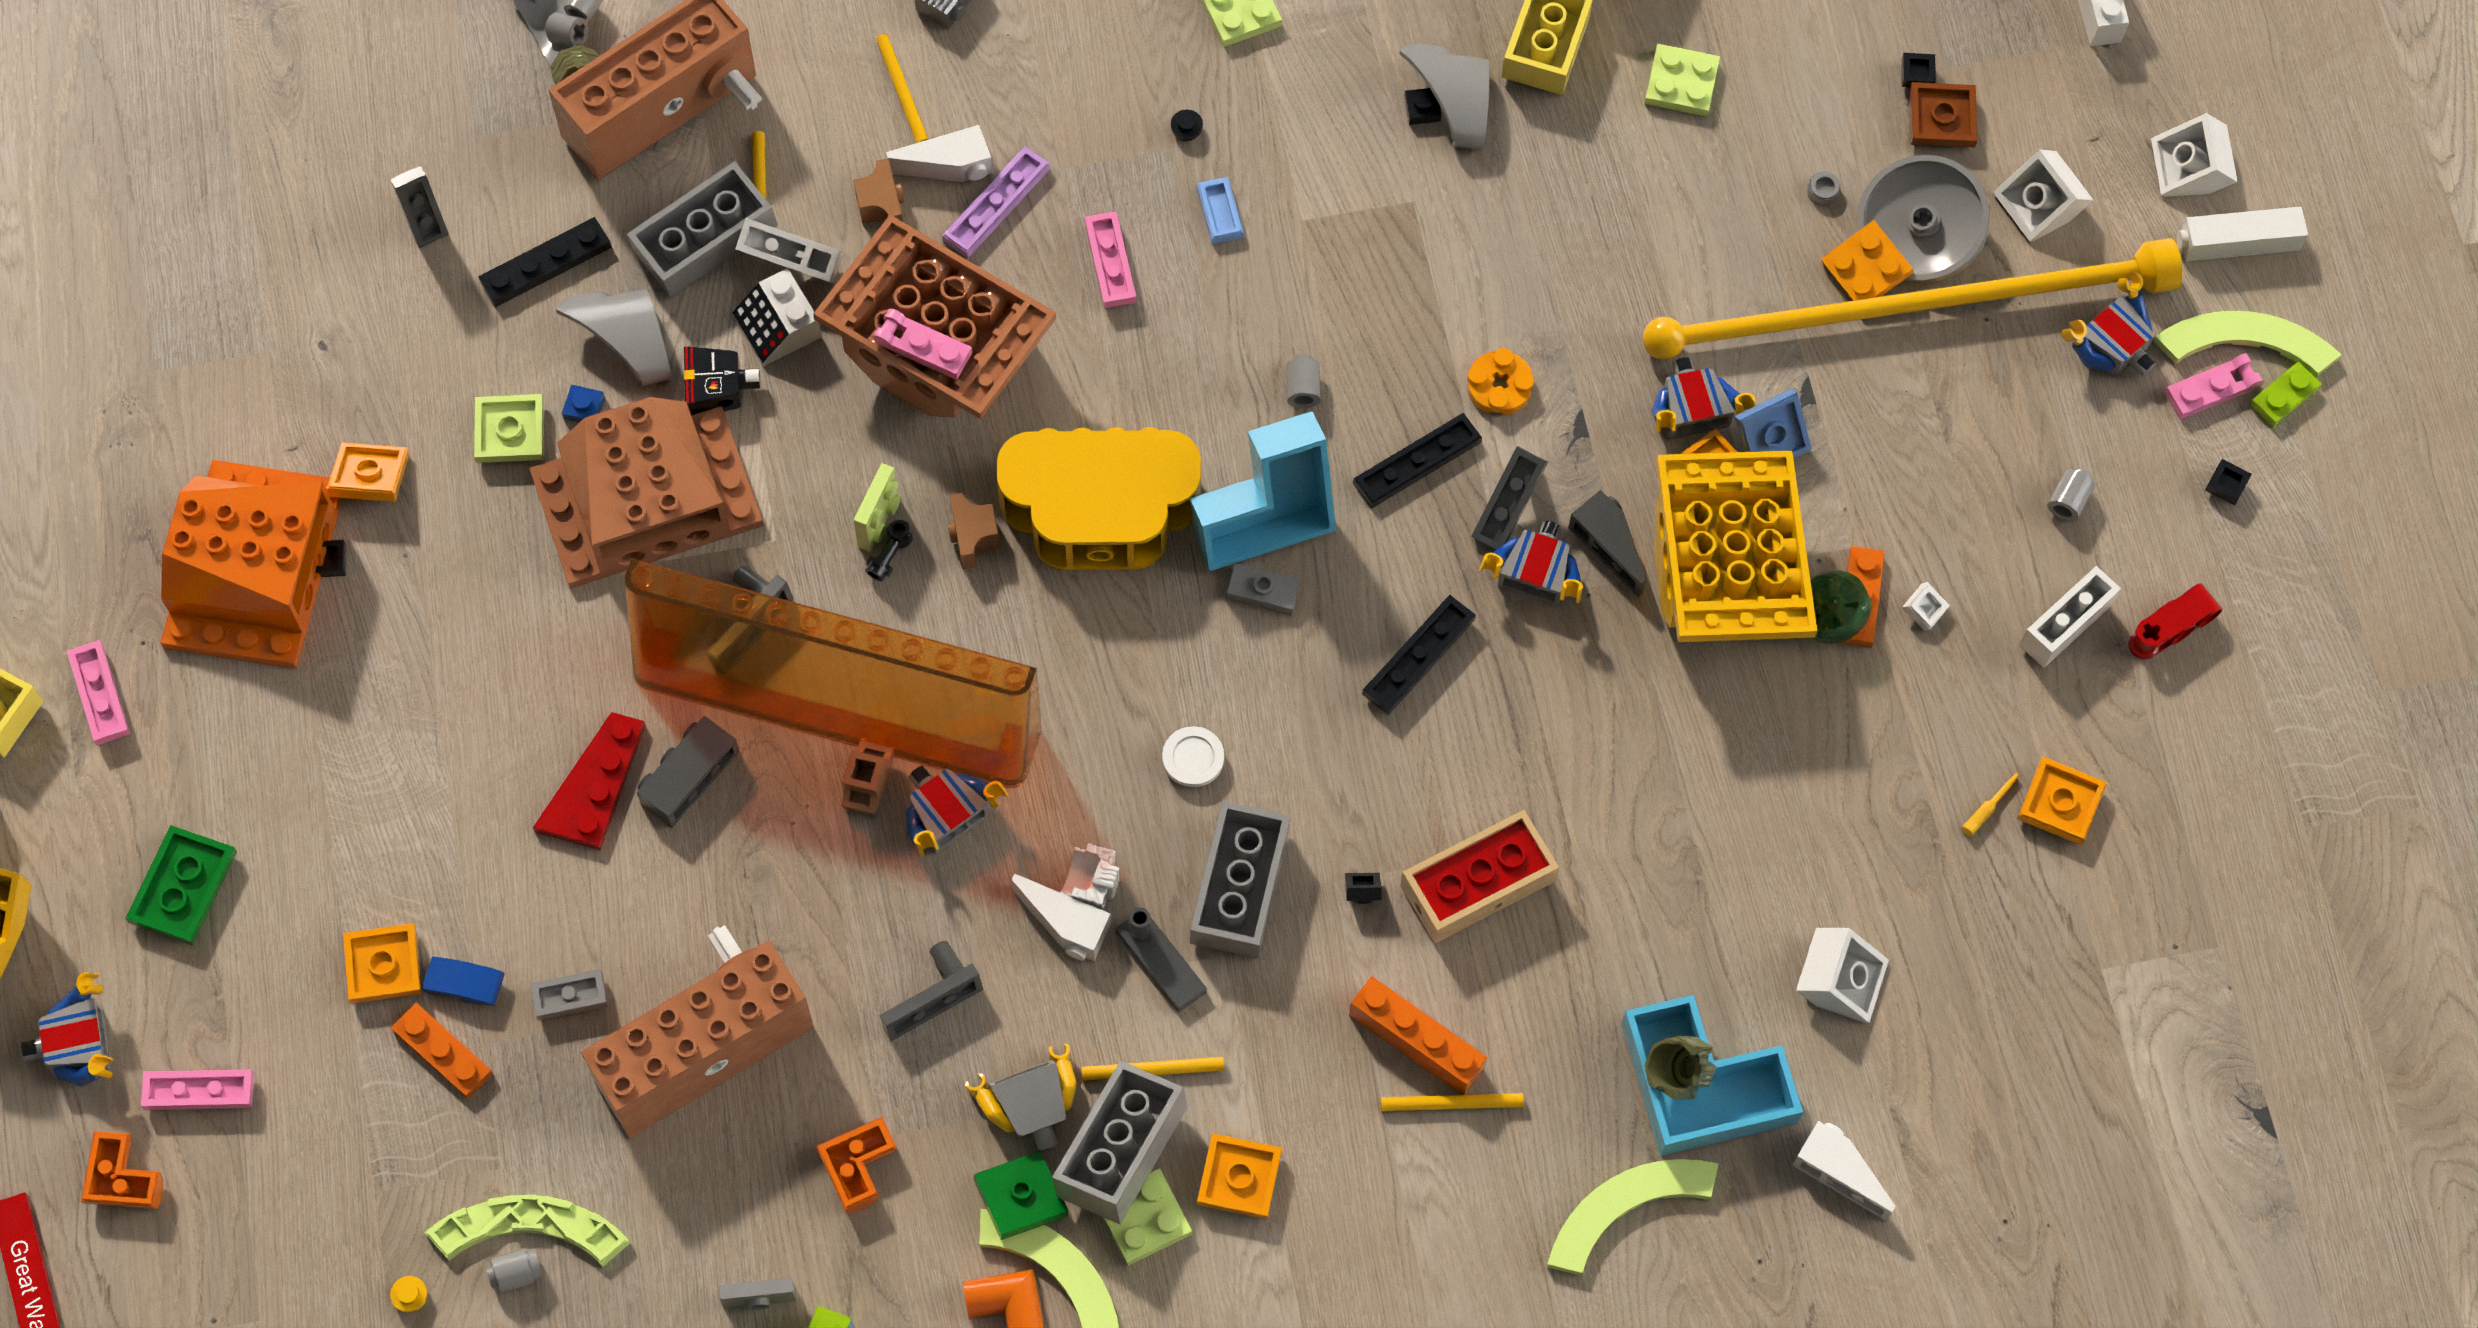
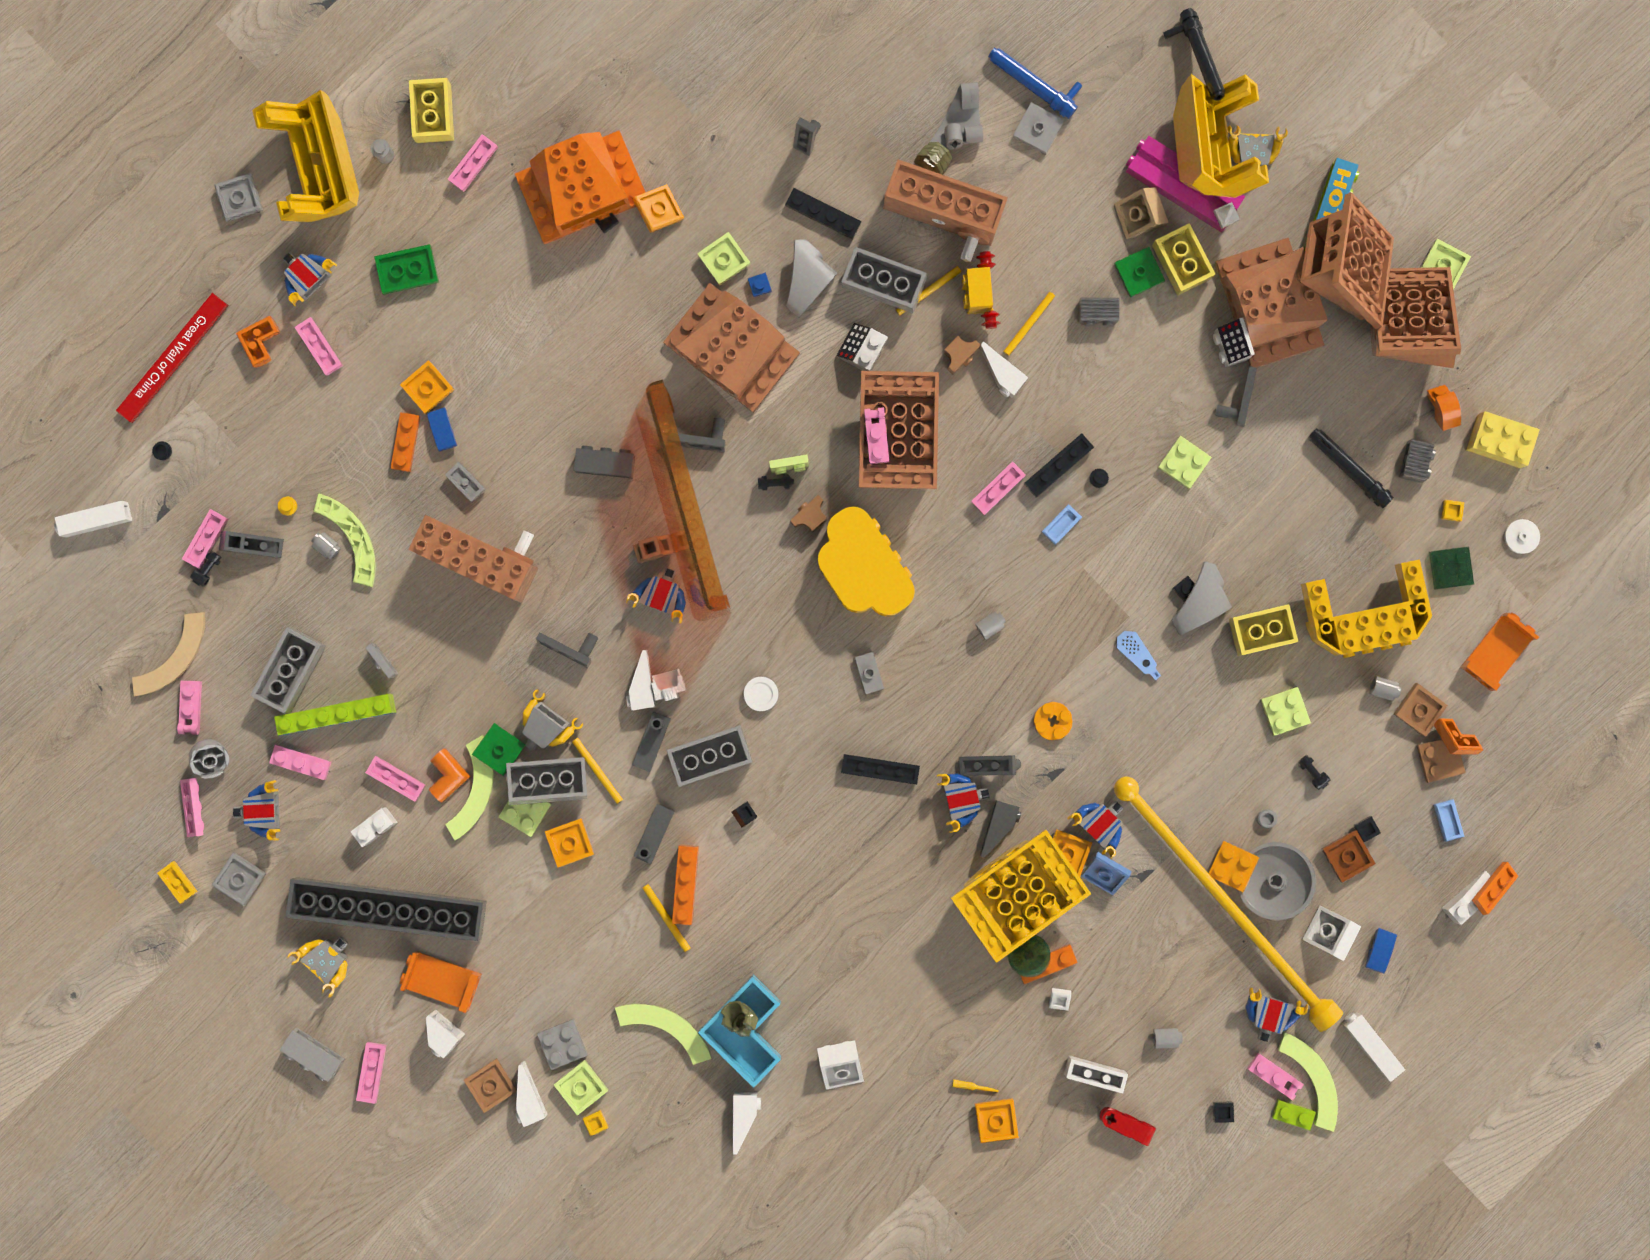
camera: 65 degrees right, 20 degrees up
(592, 789) = (568, 424): red wing -> none
(715, 379) = (810, 340): black torso -> none
(789, 250) = (898, 332): white slope -> none
(812, 116) = (979, 290): none -> yellow brick
(846, 1161) = (467, 660): orange brick -> none
(996, 202) = (996, 411): lavender tile -> none
(1132, 164) = (1058, 465): none -> black plate
(1276, 508) = (914, 657): medium azure piece -> none
(1307, 1042) = (654, 833): none -> dark grey piece
(1417, 460) = (985, 705): black tile -> none
(1478, 215) = (1139, 655): none -> light blue piece
(1479, 876) = (781, 867): brick -> none
(1810, 88) = (1320, 780): none -> black bar
(2110, 151) = (1381, 951): none -> blue slope
(2194, 158) = (1403, 998): white slope -> none

